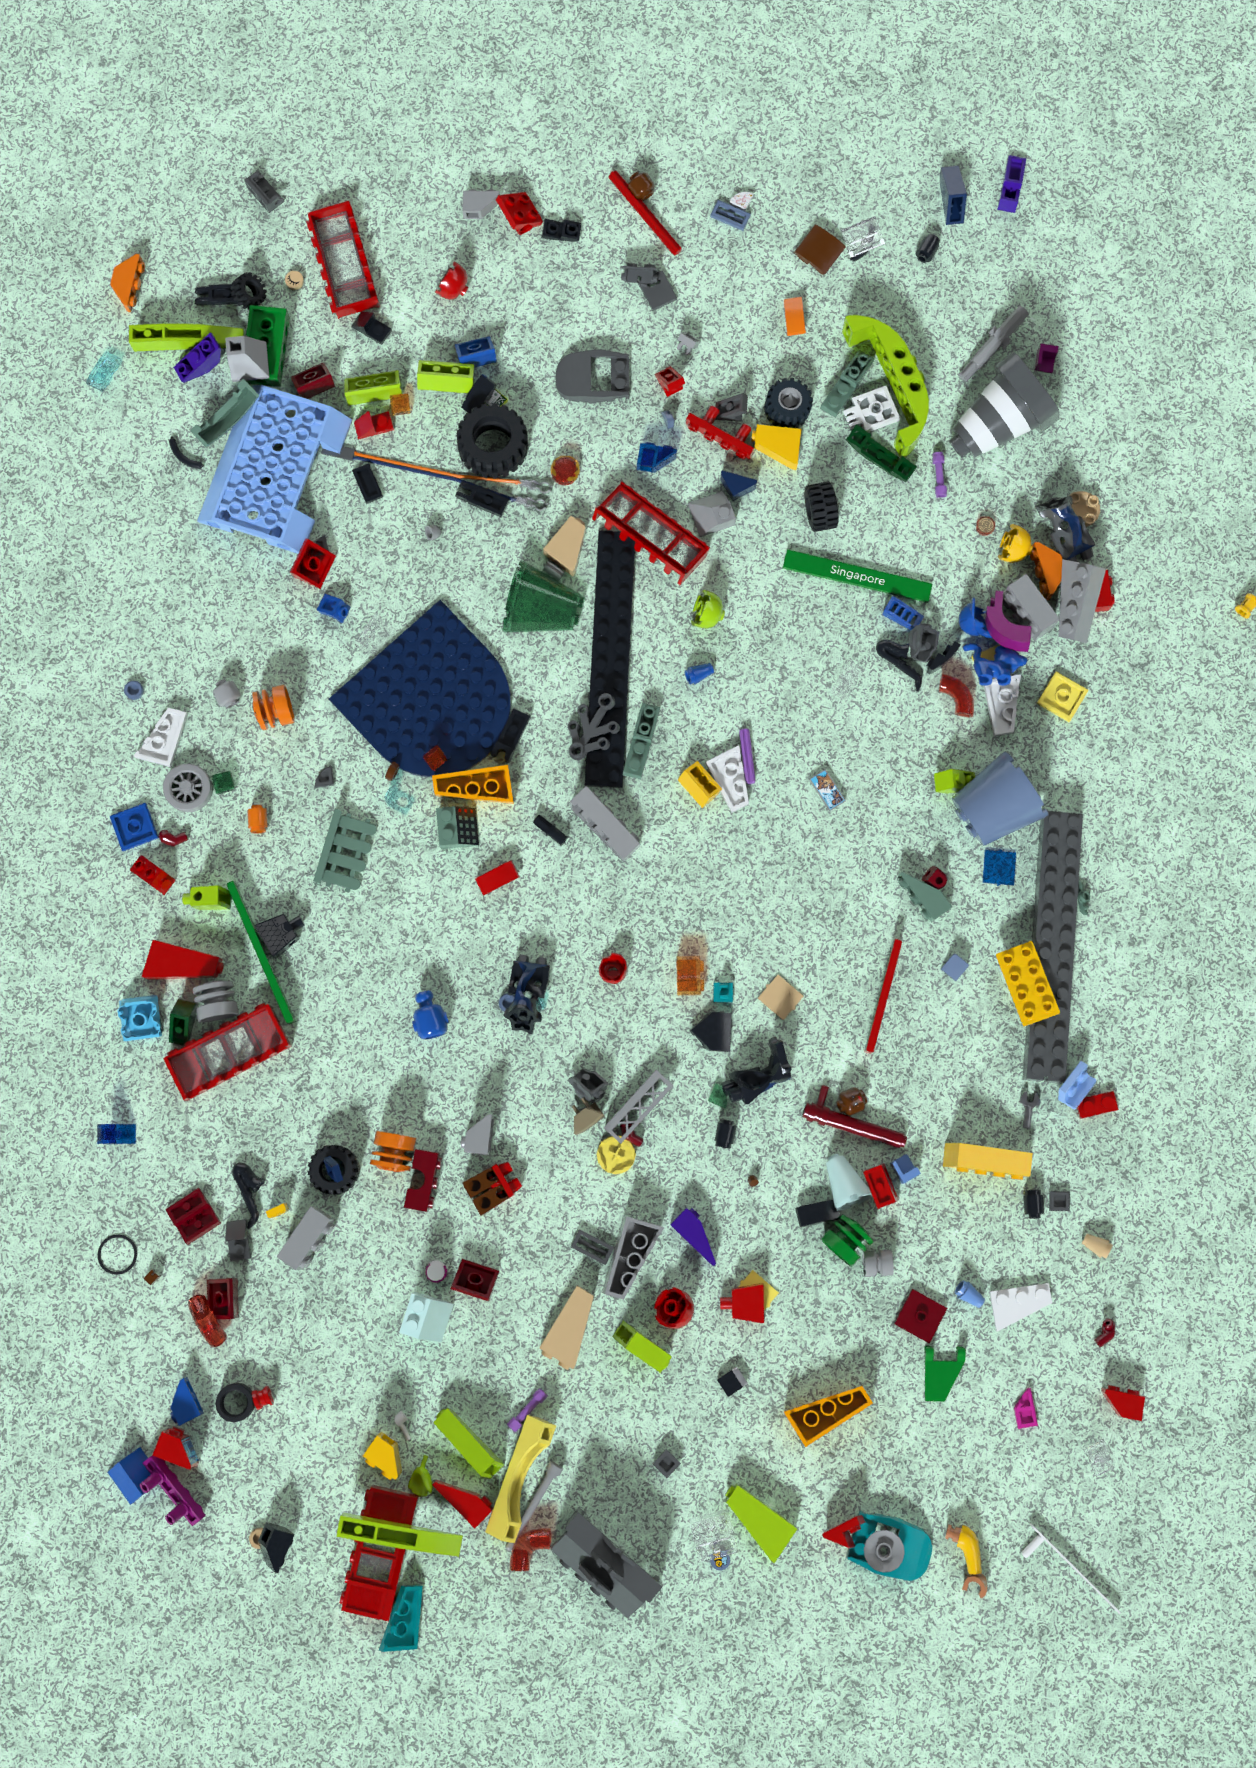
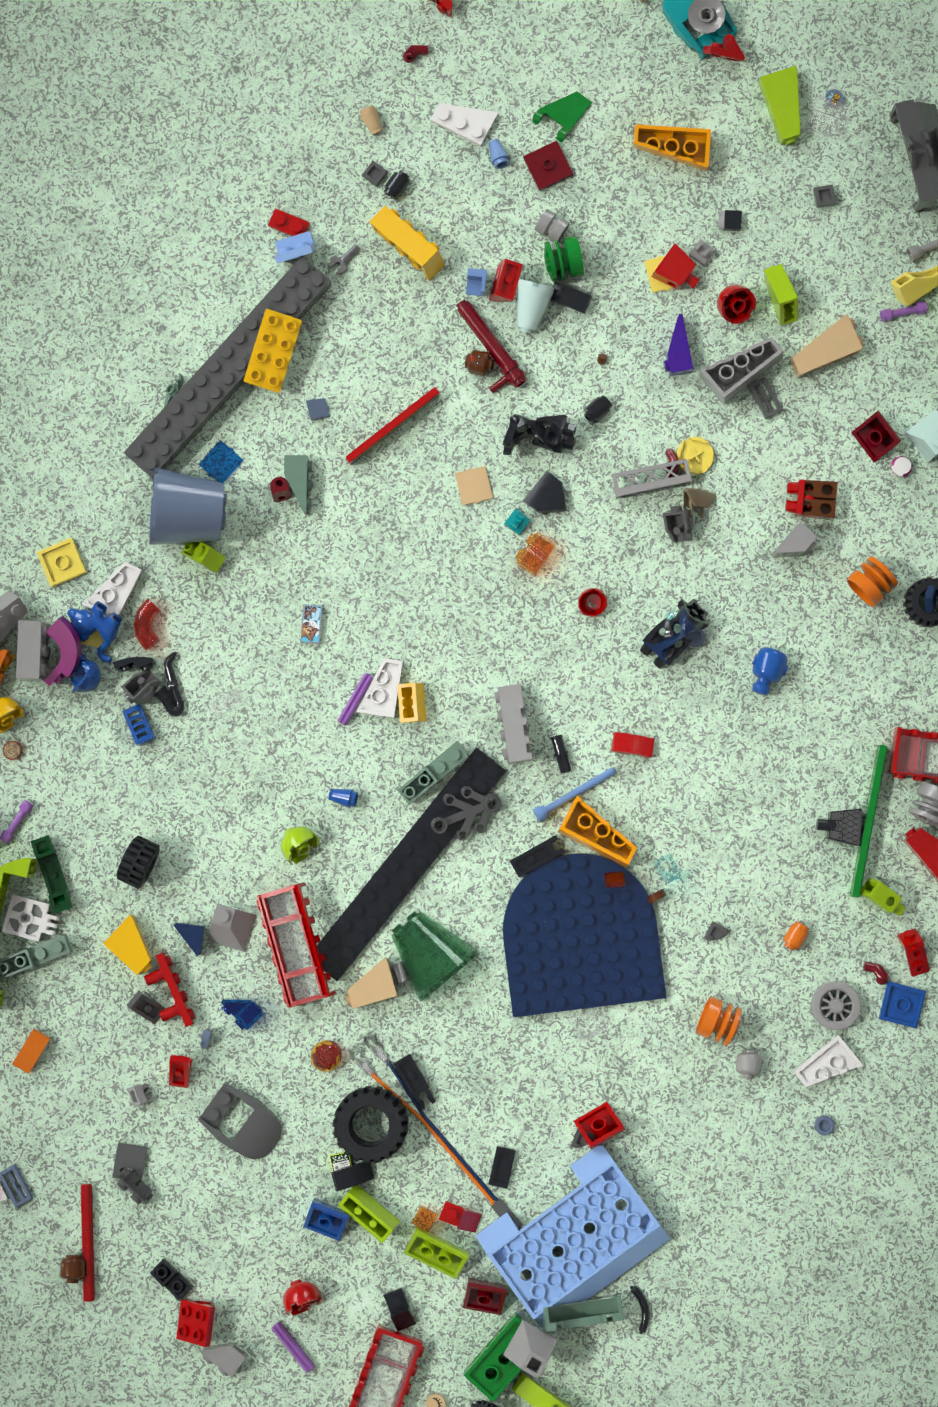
camera: 140 degrees left, 5 degrees up
(199, 359) = (571, 1385): dark purple slope -> none
(223, 782) = (802, 988): clear green plate -> none
(334, 608) = (607, 1075): blue bracket -> none
(346, 842) = (738, 867): sand green fence -> none
(421, 1198) = (875, 531): dark red arch -> none
(433, 246) = (293, 1347): none -> medium lavender axle
(434, 530) = (475, 1082): light grey hinge -> none
(457, 827) = (635, 810): sand green slope -> none
(531, 773) = (542, 812): none -> medium blue piece
(718, 1097) = (582, 442): clear green tile -> none
(735, 1335) = (701, 252): none -> light grey tile
(788, 403) = (96, 975): black wheel -> none
(857, 576) = (151, 785): green tile -> none
(1025, 1411) = (521, 40): dark pink tile -> none

